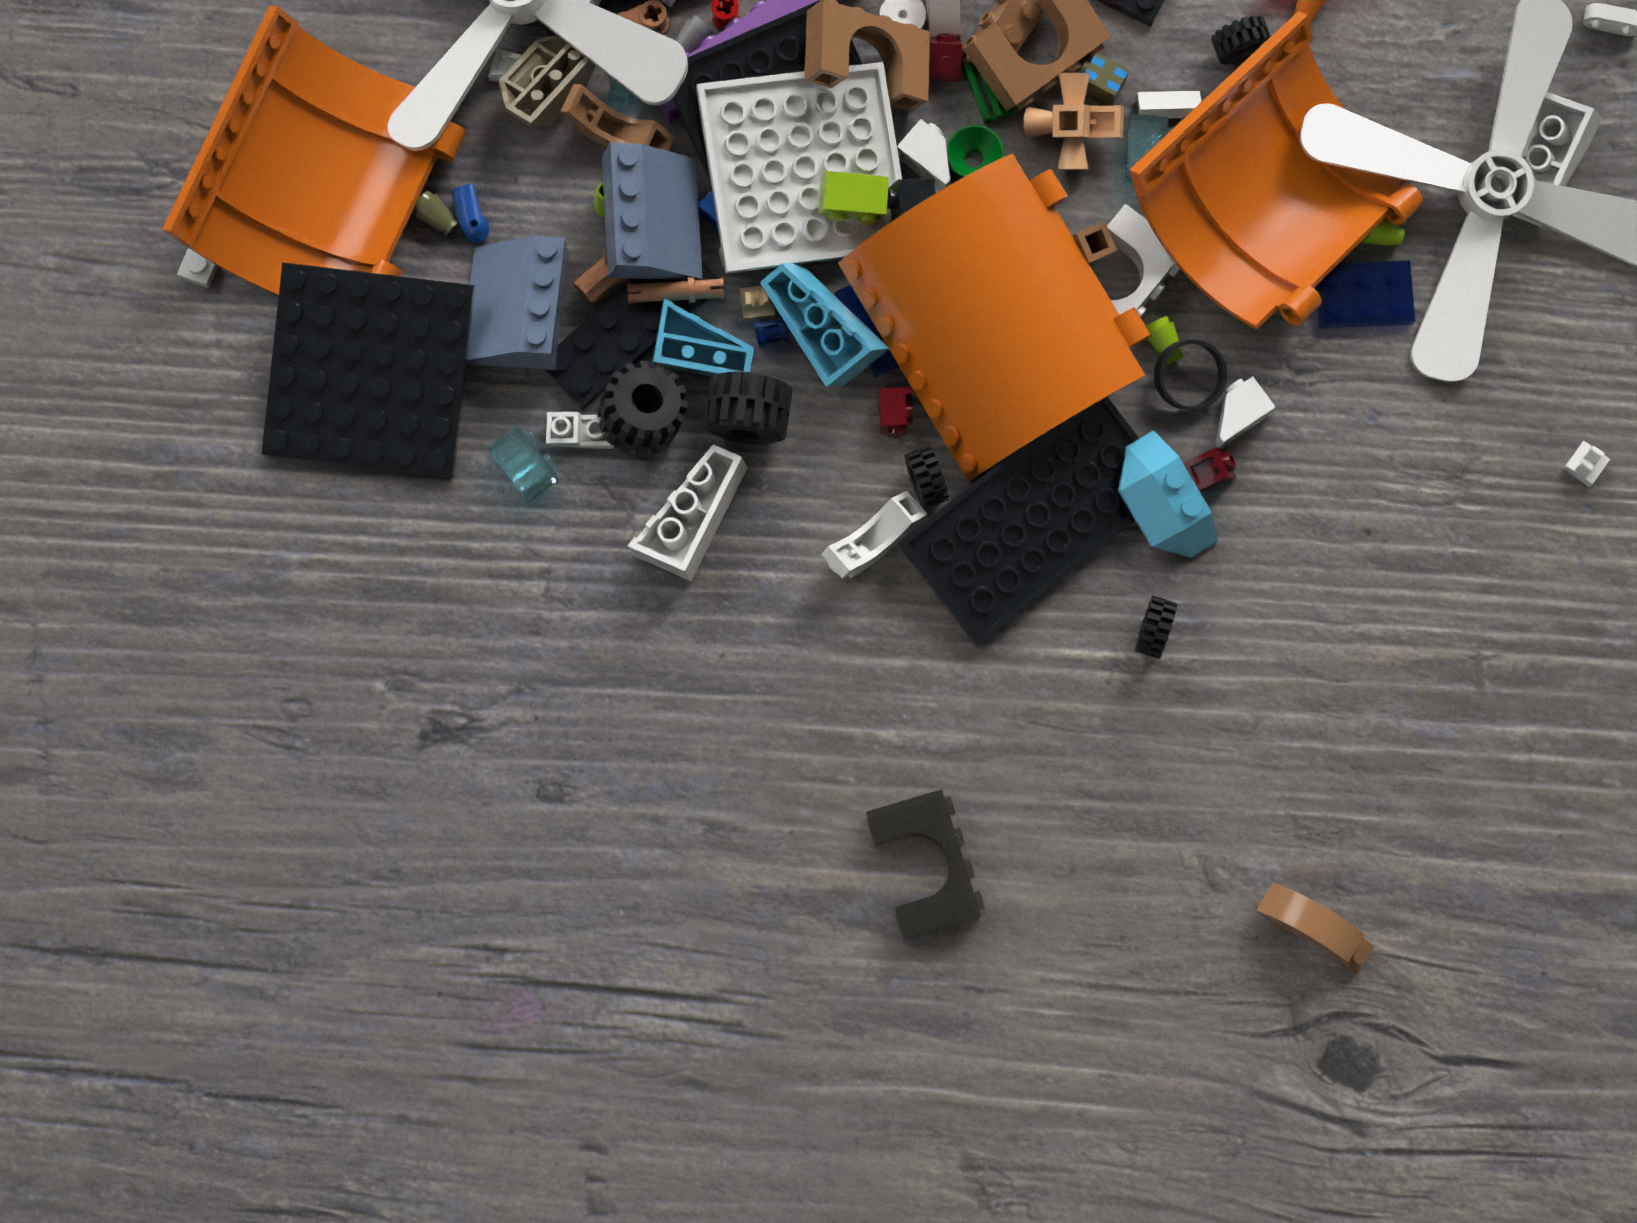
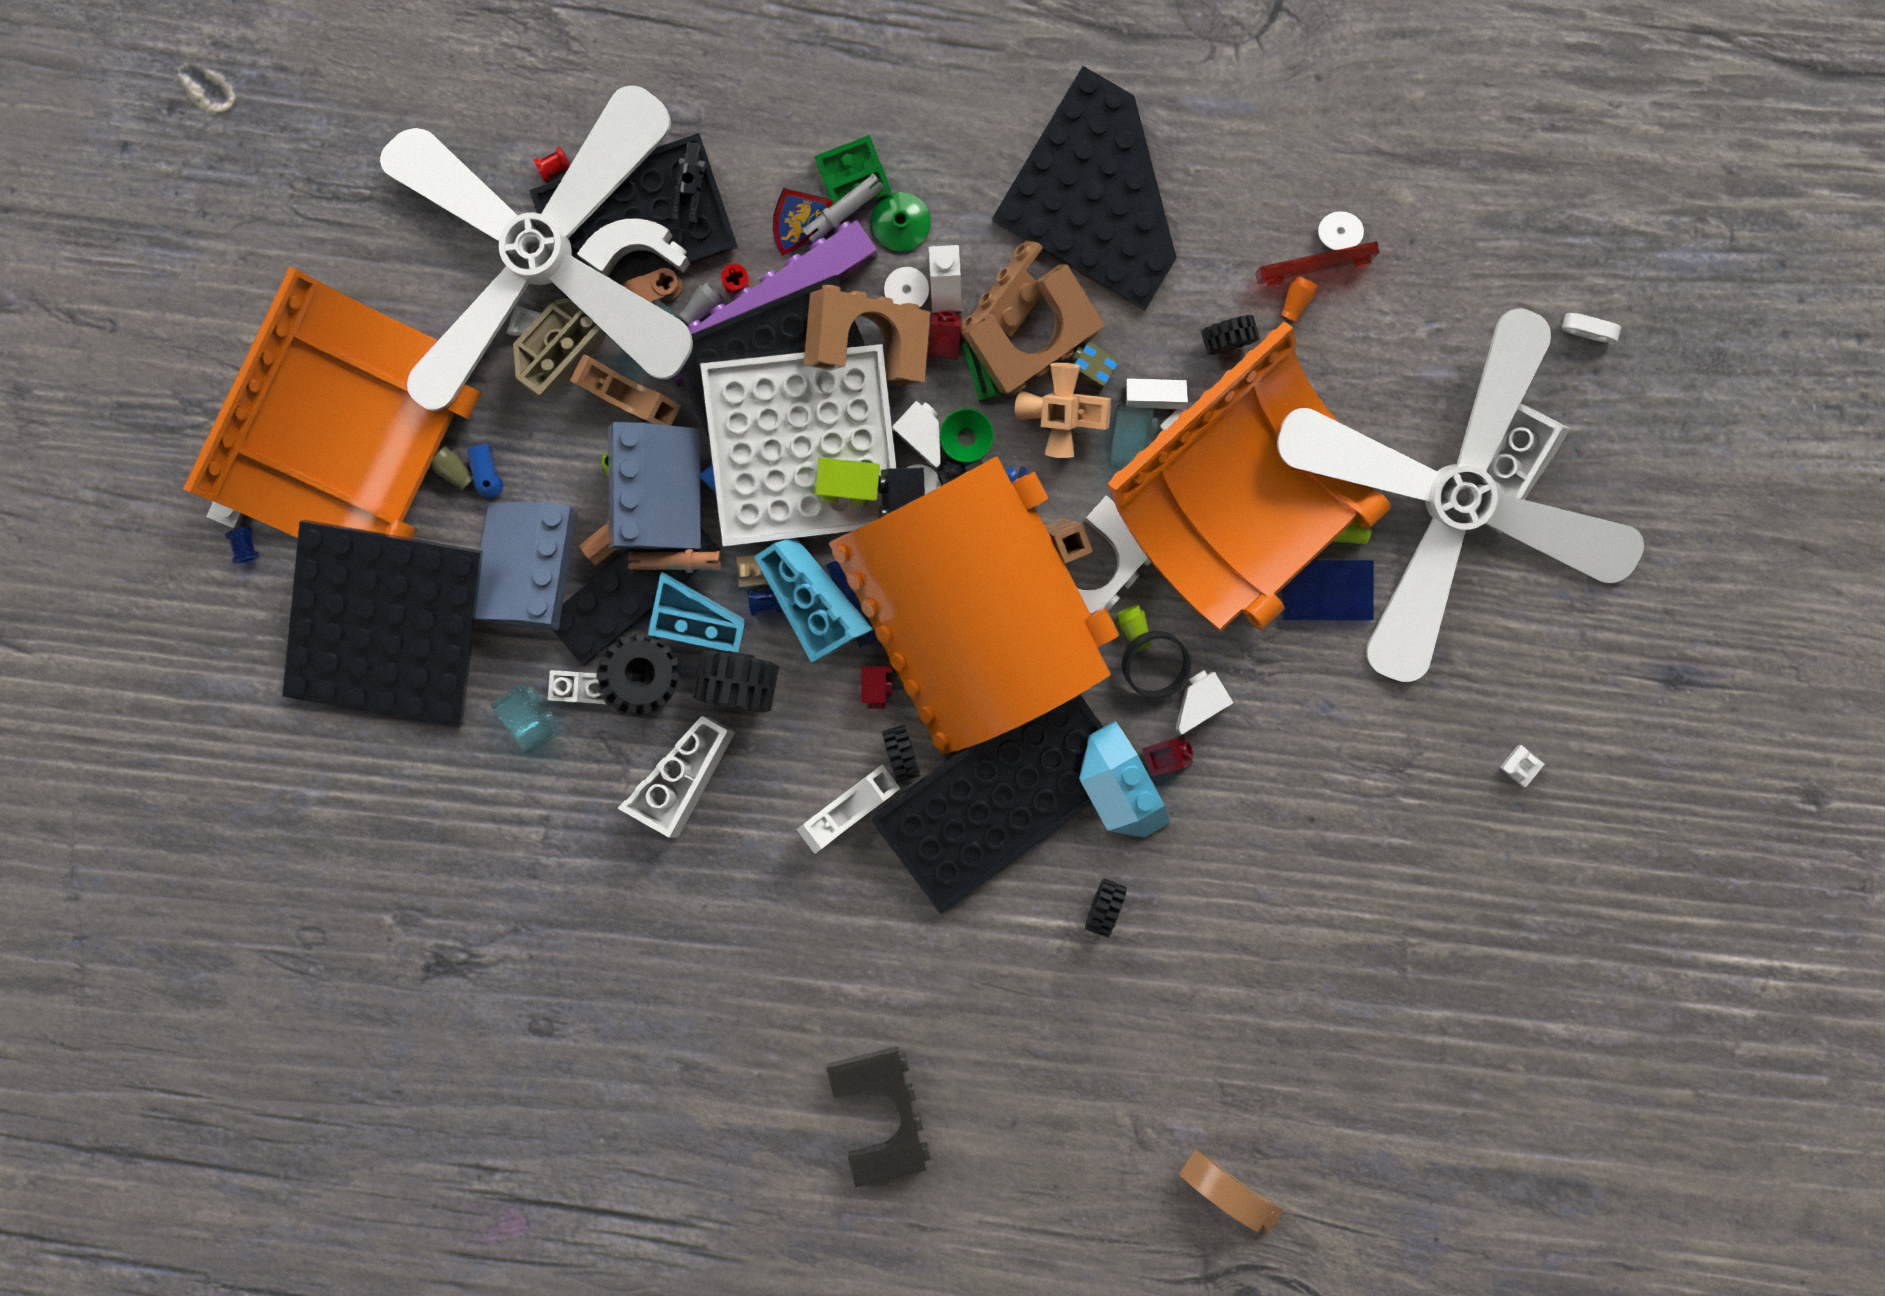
camera: 10 degrees right, 10 degrees up
(215, 301) = (242, 545): none -> clear blue bush

